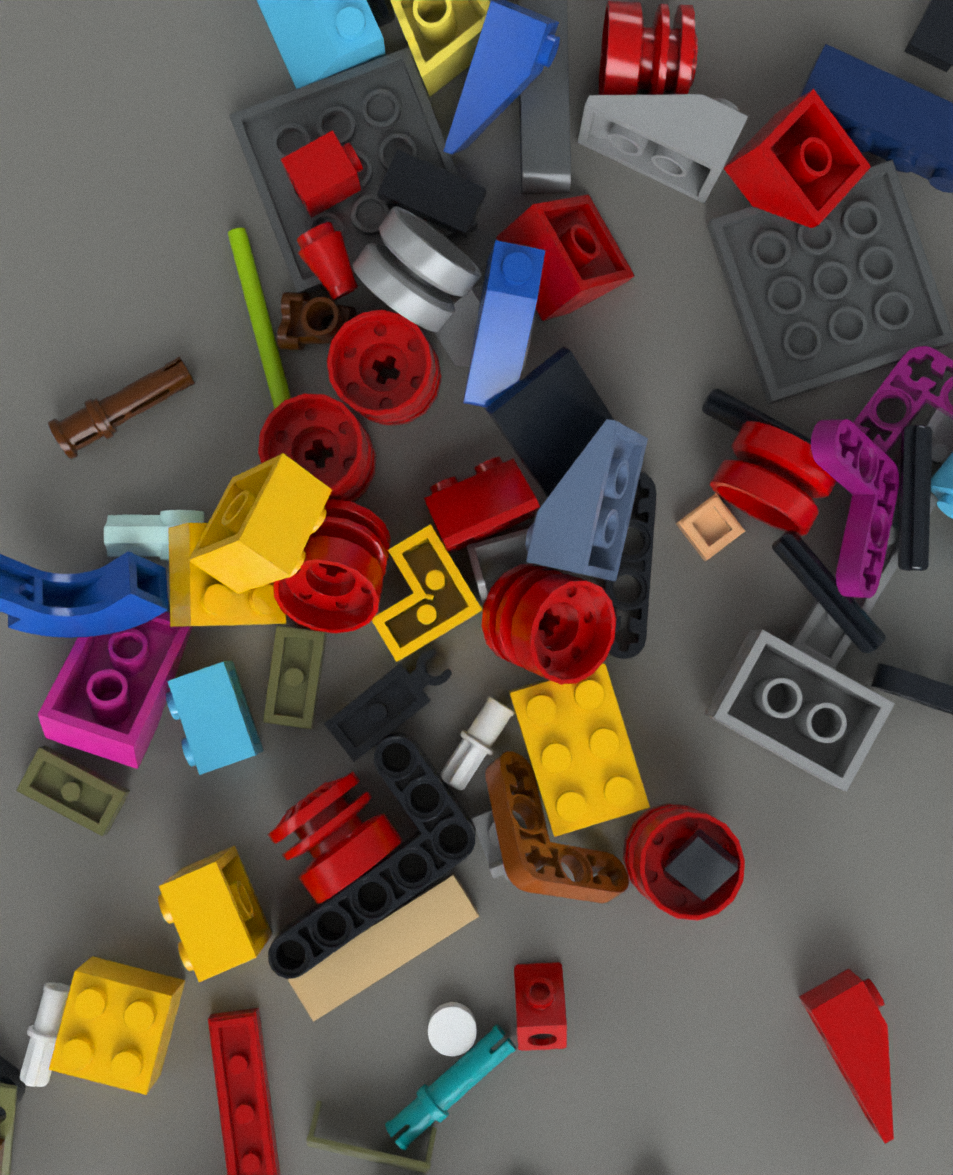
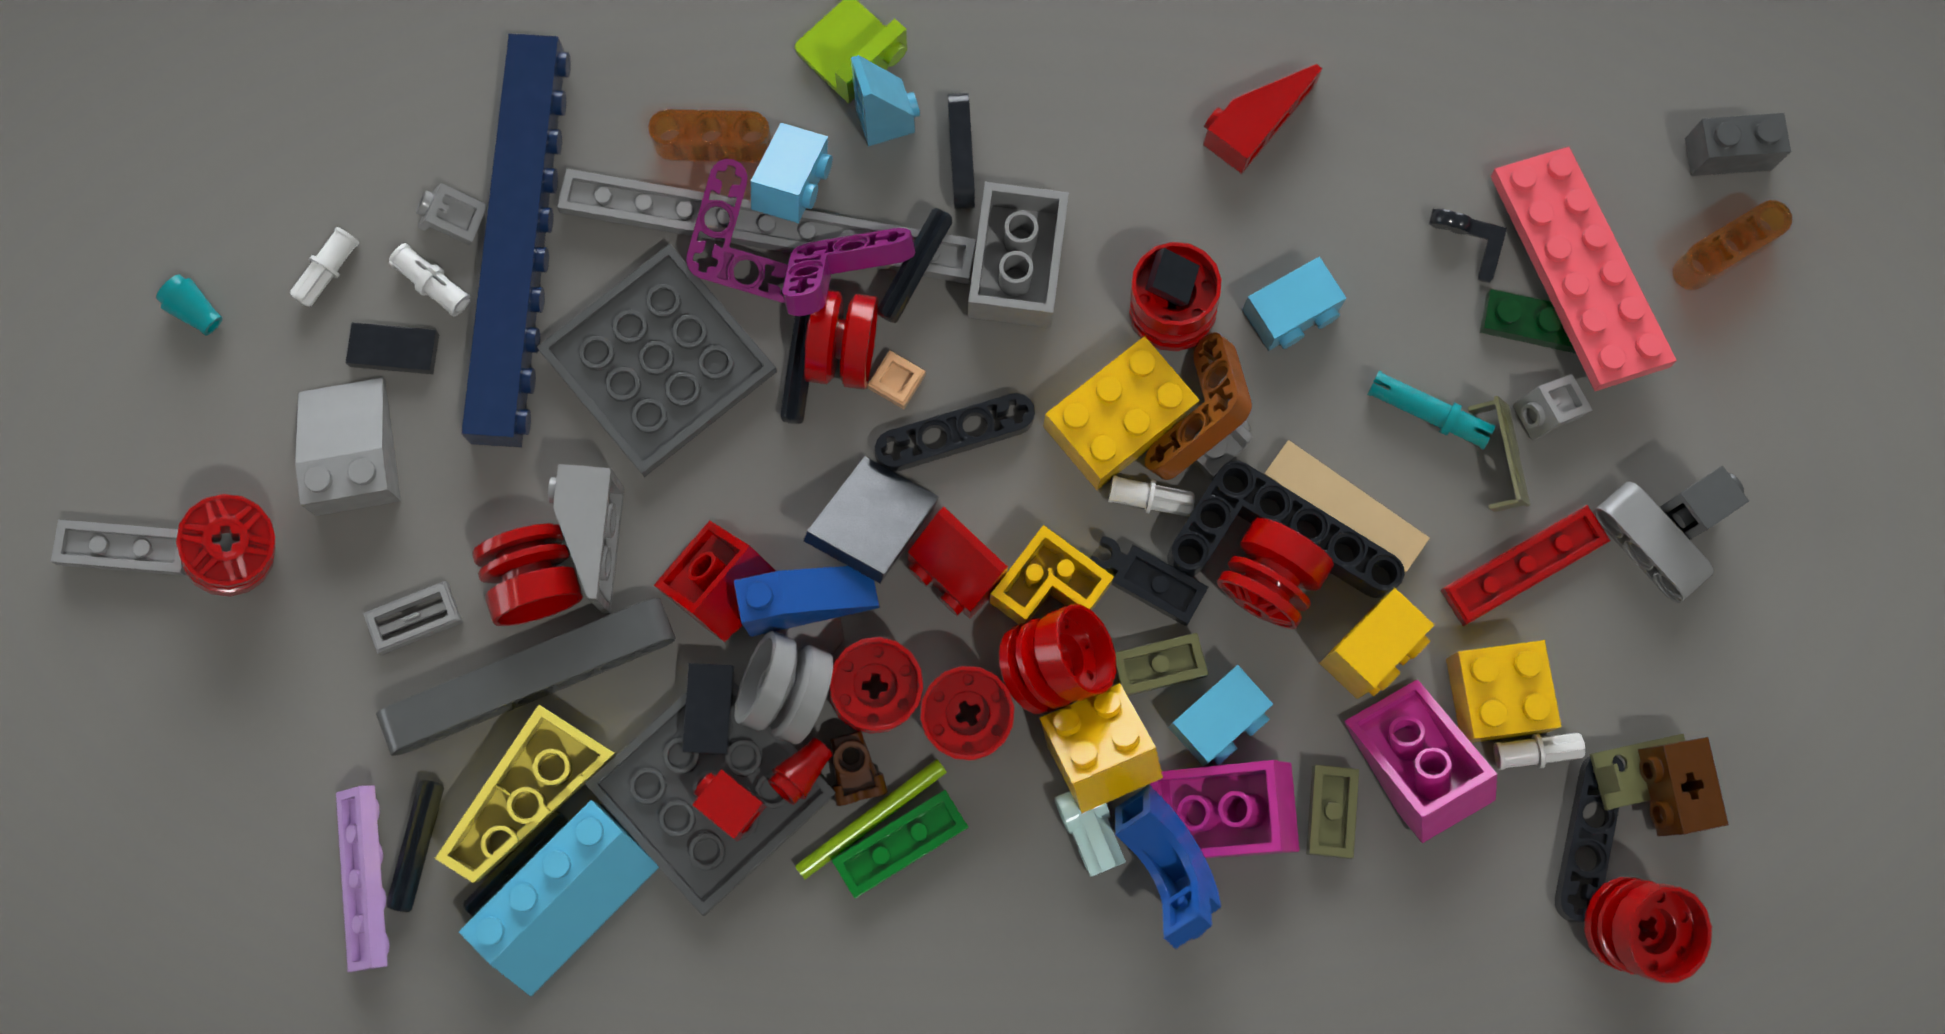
camera: 115 degrees left, 10 degrees down
(85, 907) = (1423, 760): none -> dark pink slope
(102, 417) = (1009, 919): reddish brown pin -> none
(221, 338) = (900, 844): none -> green plate
(262, 525) = (1052, 717): yellow brick -> none
(452, 1029) = (1386, 427): white tile -> none
(495, 556) = (991, 533): light grey bracket -> none
(505, 62) = (583, 681): blue slope -> none
(540, 1006) = (1336, 364): red bracket -> none
(549, 623) = (1031, 469): red wheel -> none
(590, 509) = (936, 470): sand blue slope -> none
(626, 990) = (1294, 304): none -> medium azure brick
(798, 163) = (570, 417): red slope -> none
(915, 498) = (813, 226): black axle -> none

